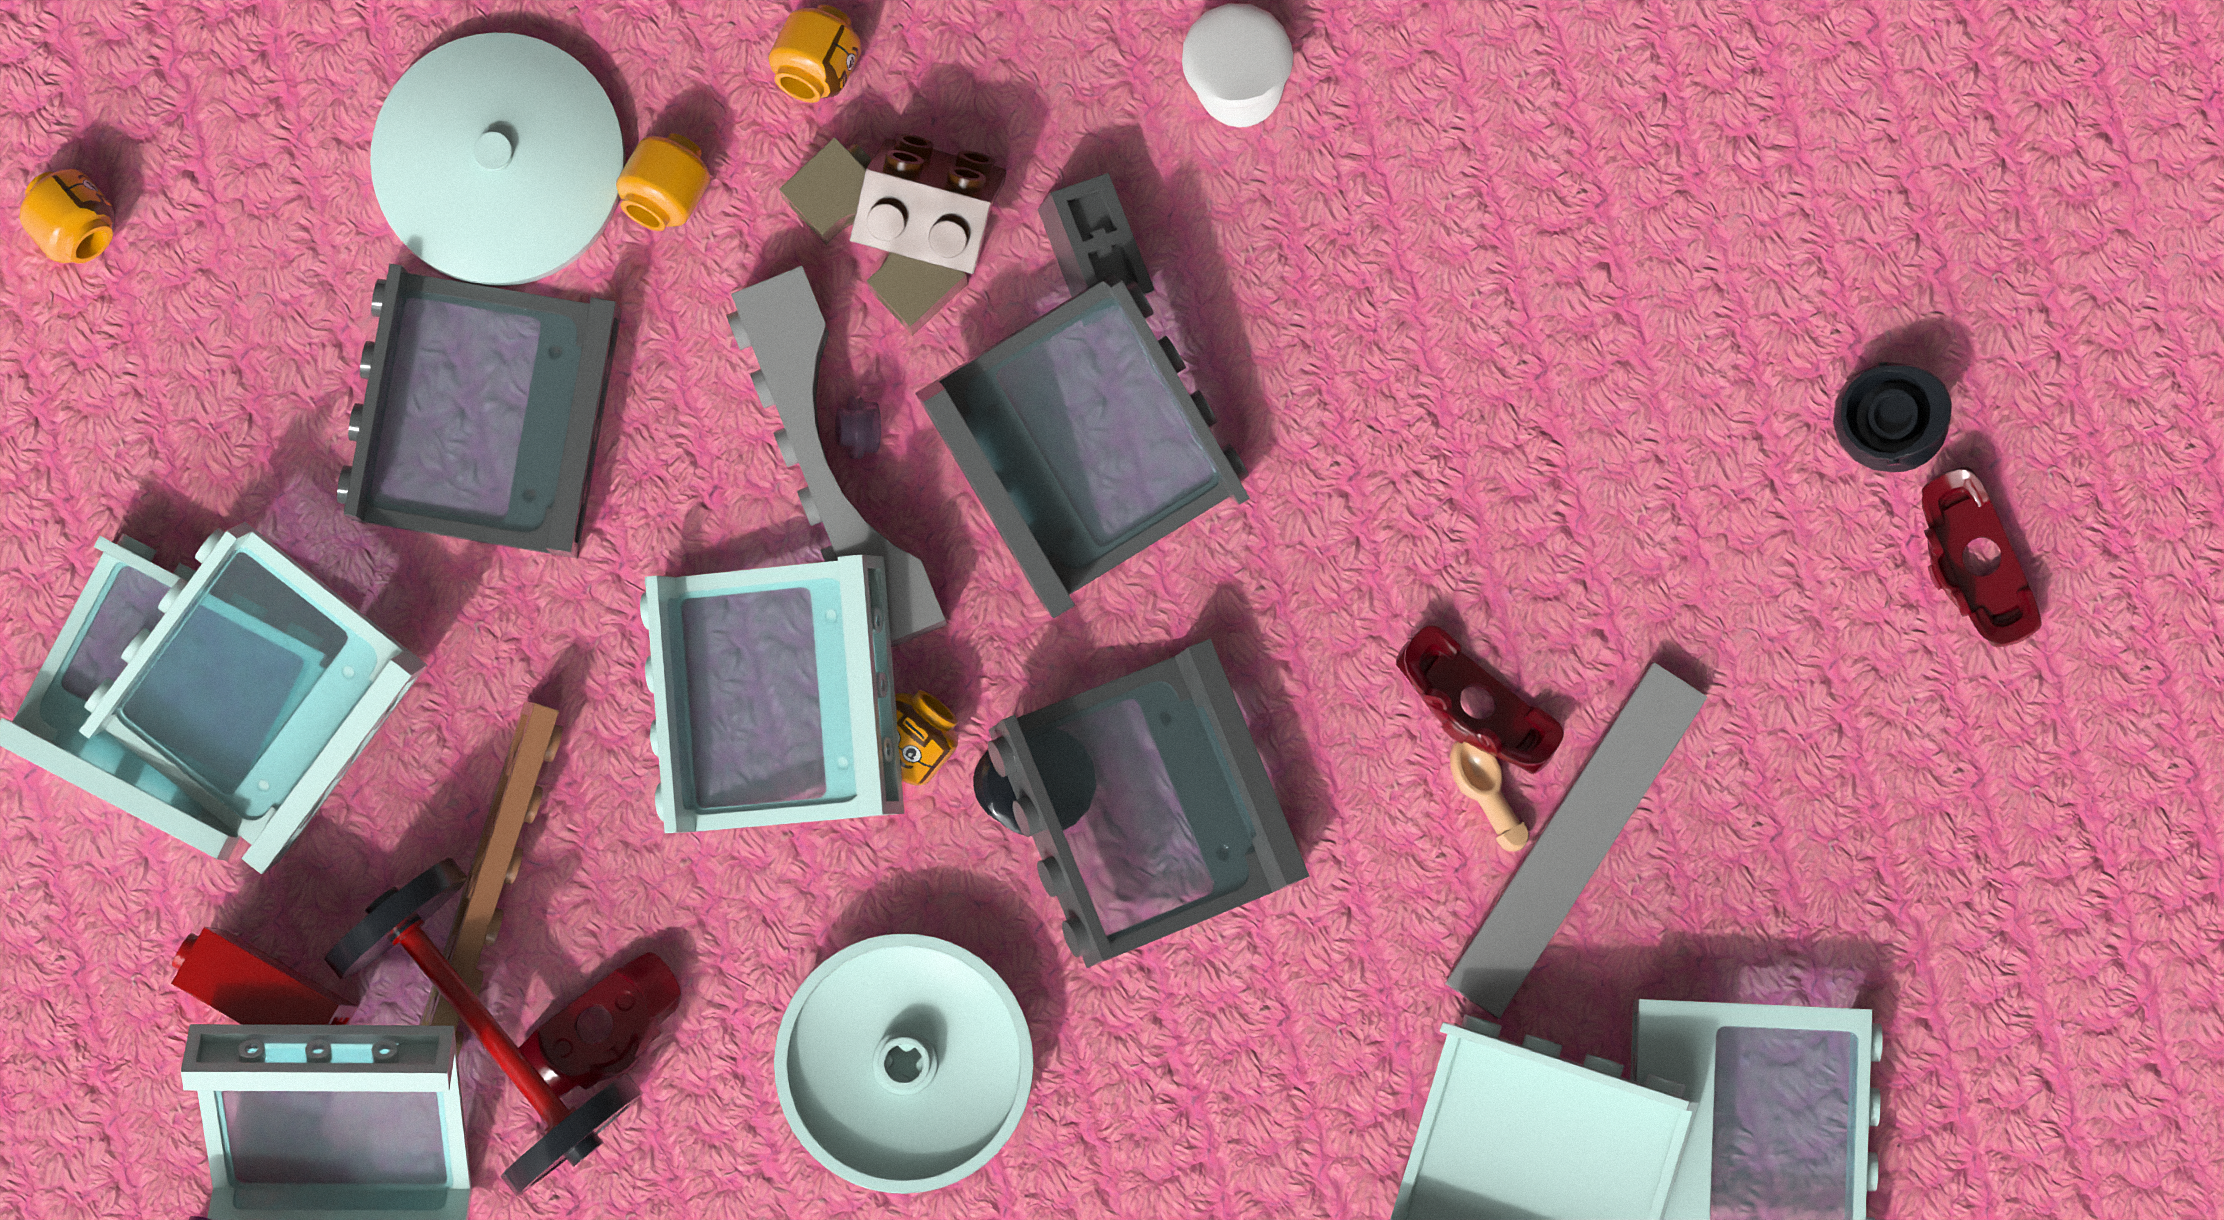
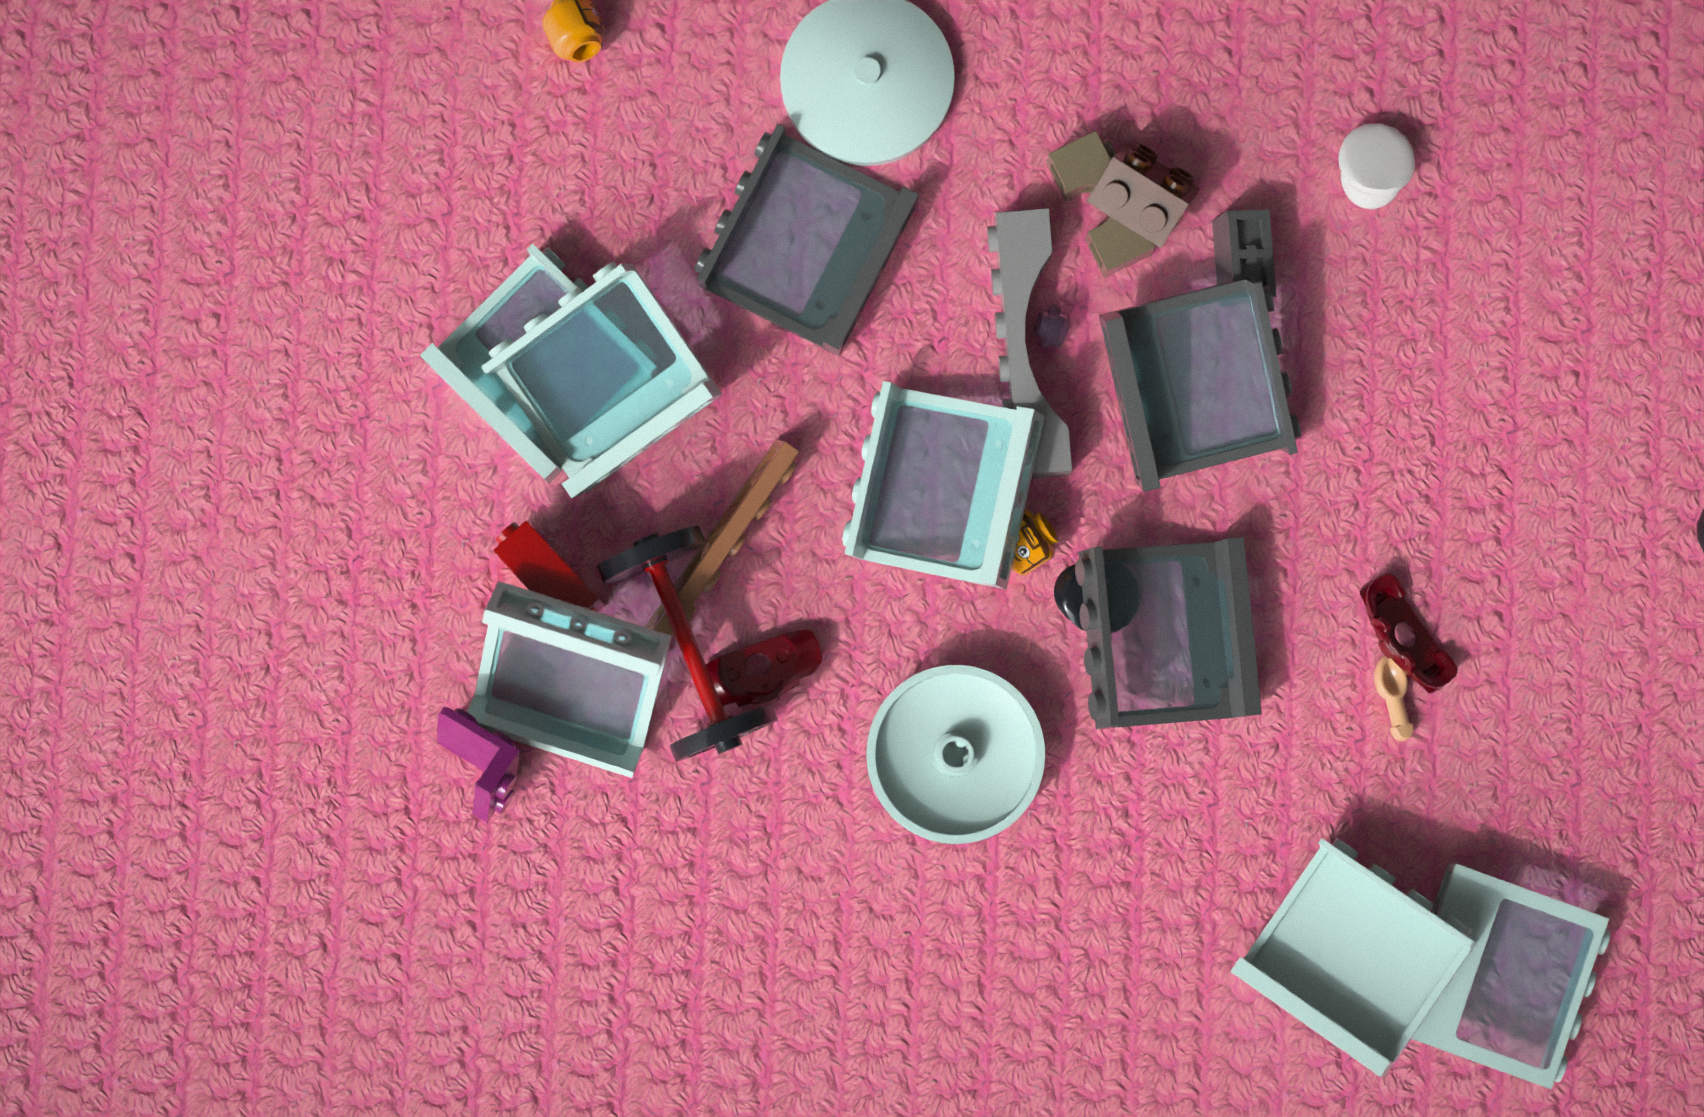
camera: 15 degrees right, 0 degrees up
(663, 181) = (972, 125): light orange head -> none
(814, 53) = (1097, 72): light orange head -> none
(1575, 840) = (1442, 746): light grey tile -> none

